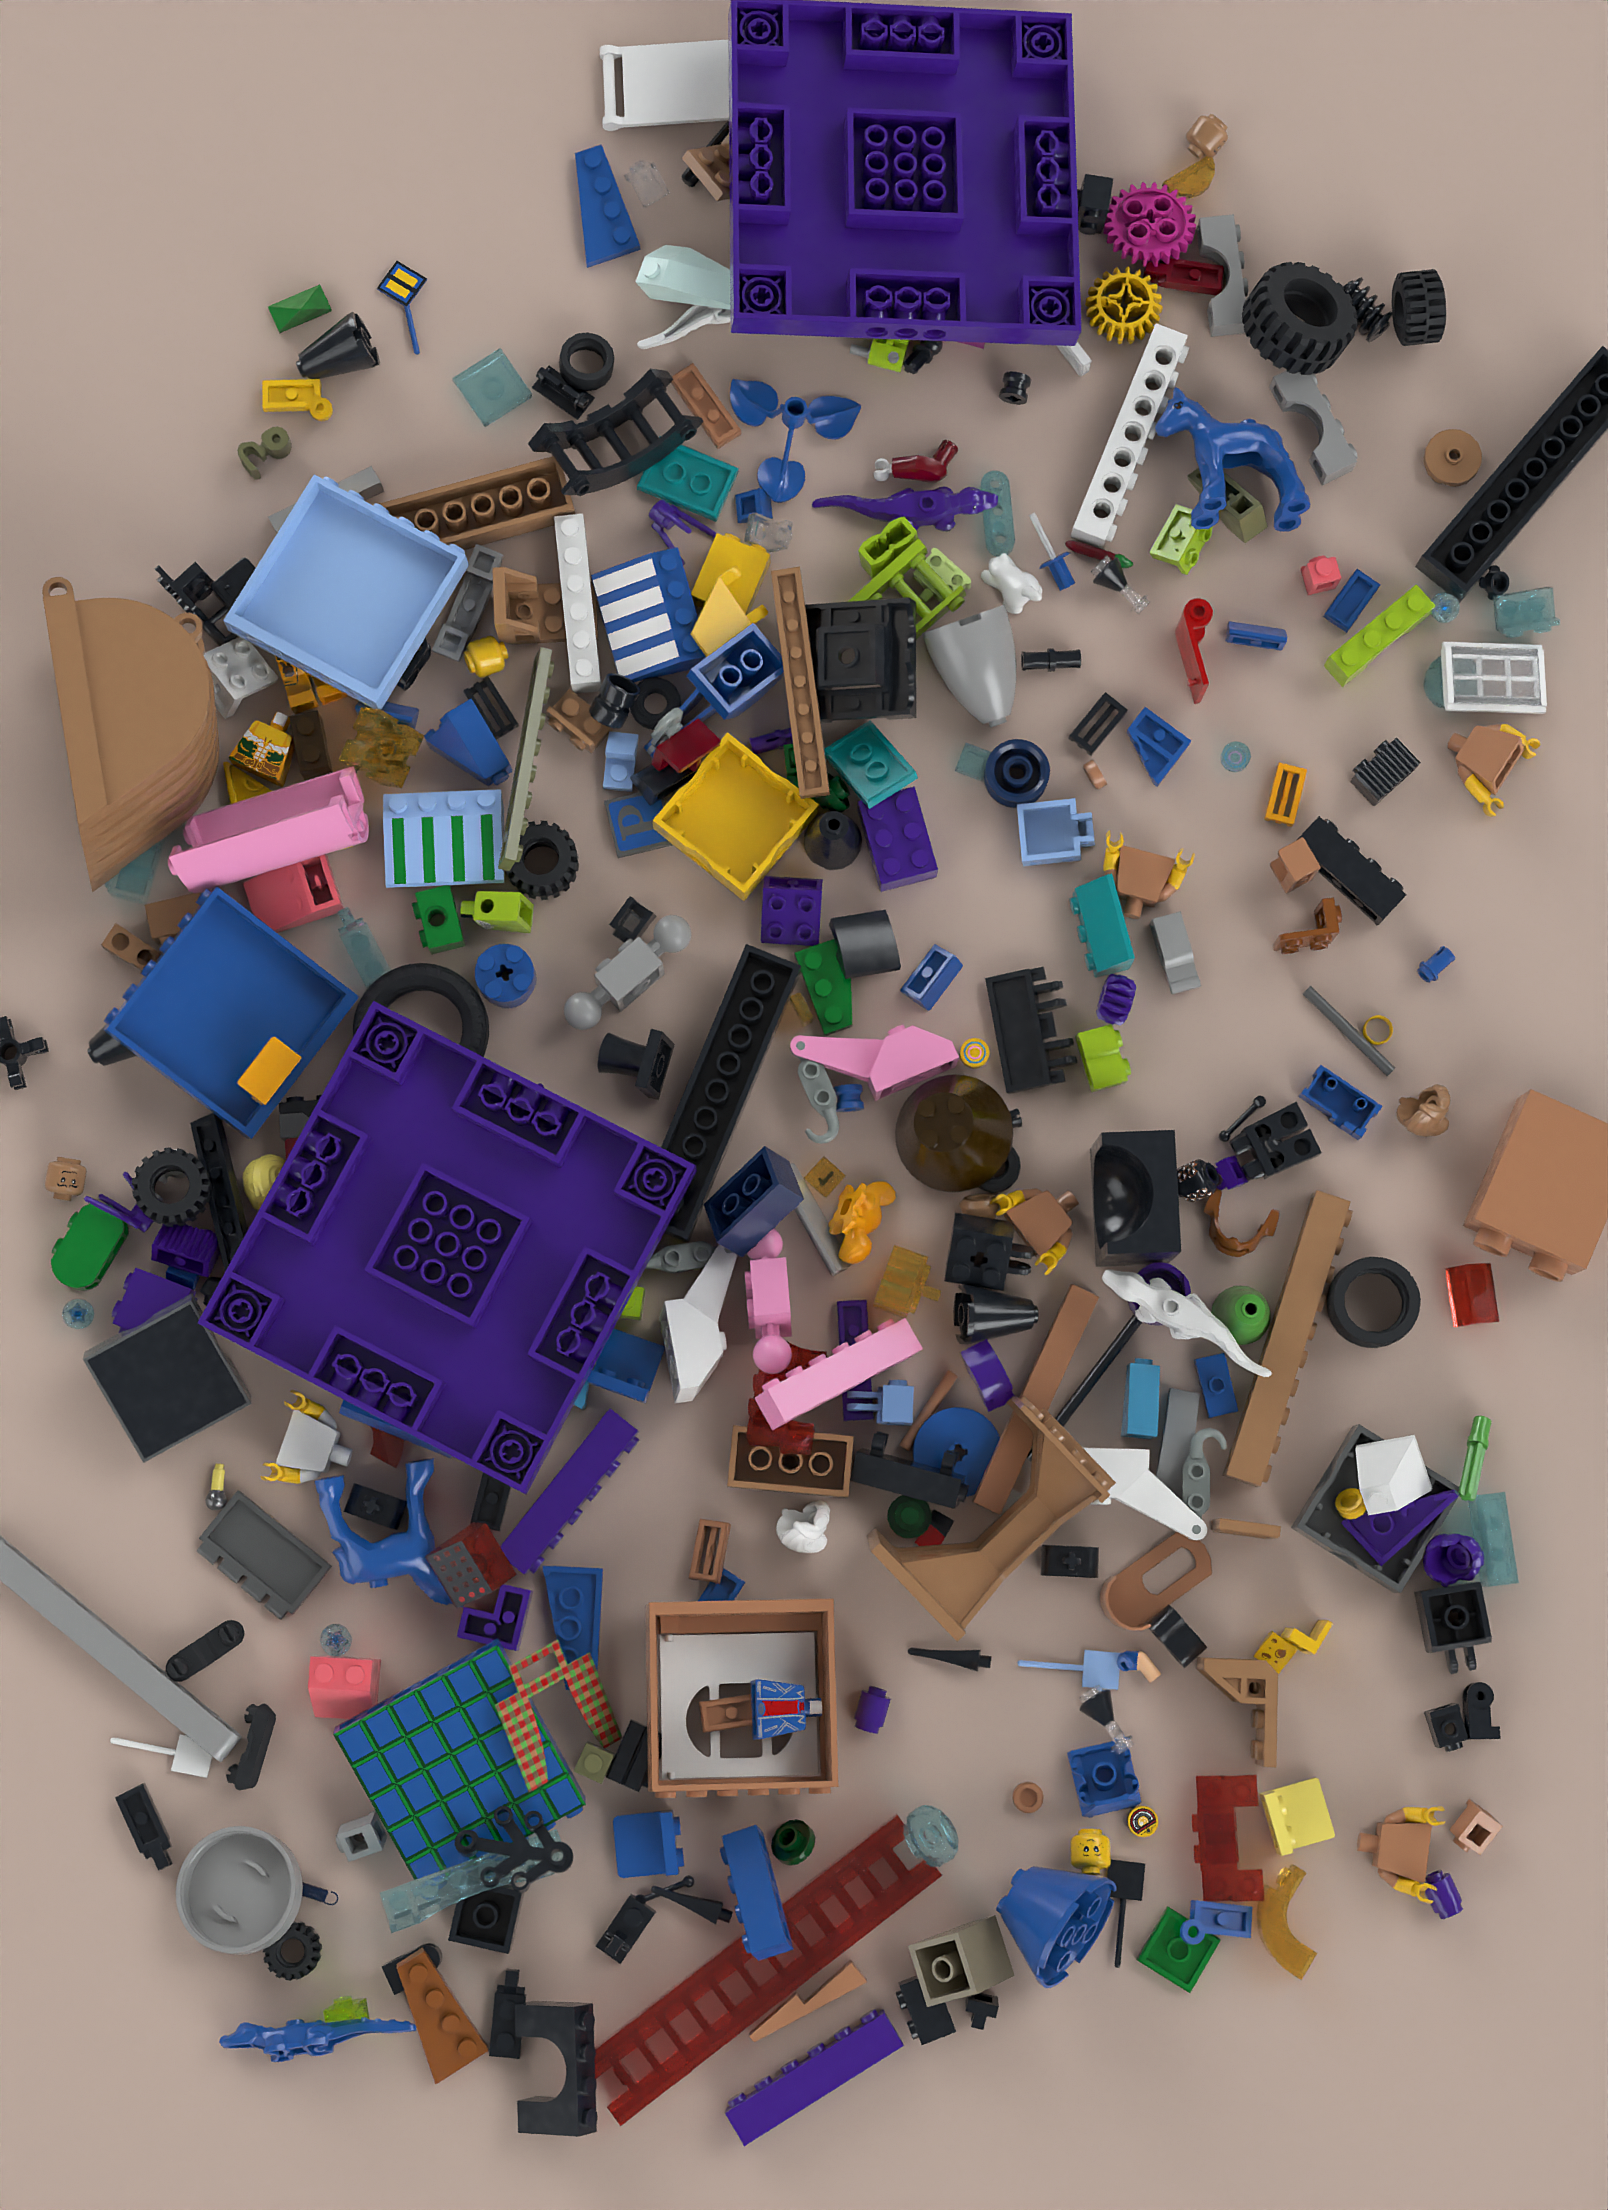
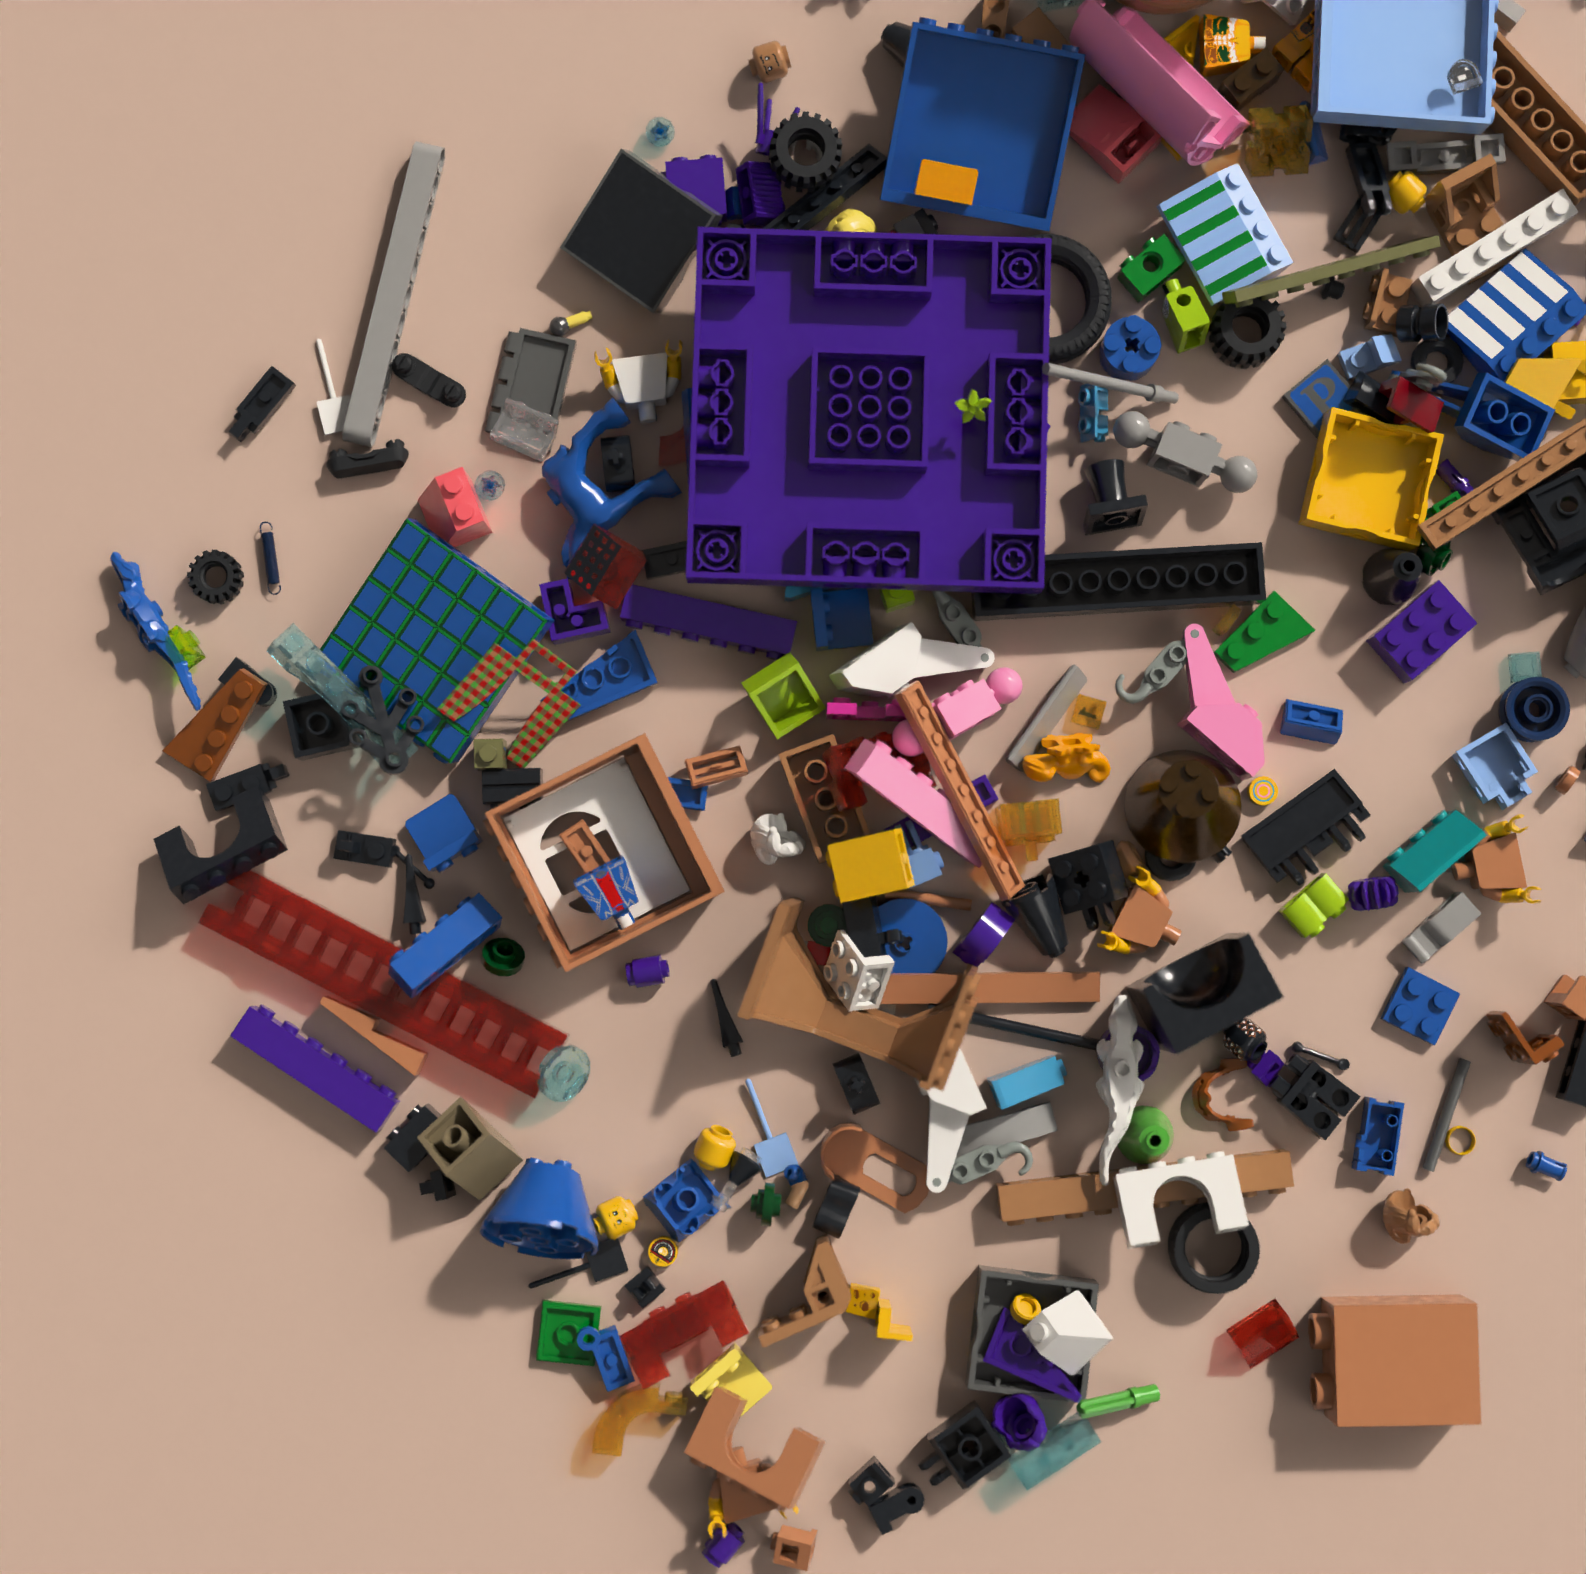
camera: 65 degrees right, 5 degrees up
(88, 1248) = (719, 111): green brick -> none
(239, 1890) = (243, 506): light grey brick -> none
(301, 1580) = (525, 429): none -> clear bracket
(357, 1846) = (326, 587): light grey brick -> none
(362, 948) = (1093, 213): clear light blue hinge -> none
(410, 557) = (1463, 76): none -> clear tile
(455, 681) = (1369, 177): none -> black hinge
(470, 744) = (1319, 216): blue slope -> none
(495, 1149) = (972, 407): none -> lime plant
(535, 1033) = (1091, 424): none -> dark azure hinge
(543, 763) = (1333, 289): none -> black piece
(555, 976) = (1150, 392): none -> light grey bar
(631, 920) = (1233, 434): black window -> none
(674, 1454) = (783, 695): none -> lime piece
(727, 1379) = (868, 711): none -> dark pink plate
(753, 1201) = (1036, 657): dark blue brick -> none
(791, 910) = (1310, 569): dark purple bracket -> none
(843, 1332) = (959, 790): none -> nougat tile
(849, 1098) = (1168, 699): blue wheel -> none
(865, 944) = (1312, 648): black slope -> none
(870, 764) = (1477, 575): teal tile -> none
(873, 1450) = (870, 865): none -> yellow brick
(971, 1515) = (856, 978): none -> white bracket
(1027, 1797) = (636, 1141): nougat tile -> none
(1067, 1724) = (714, 1147): none -> yellow head
(1143, 1700) = (766, 1204): none -> dark green plate
(1168, 1854) = (645, 1287): none -> black tile
(1216, 1385) = (1072, 1141): blue plate -> none
(1238, 1006) = (1420, 1006): none -> blue plate
(1245, 1528) = (958, 1225): medium nougat tile -> none
(1309, 1270) = (1213, 1176): none -> white arch
(1346, 1859) = (713, 1447): none -> nougat arch

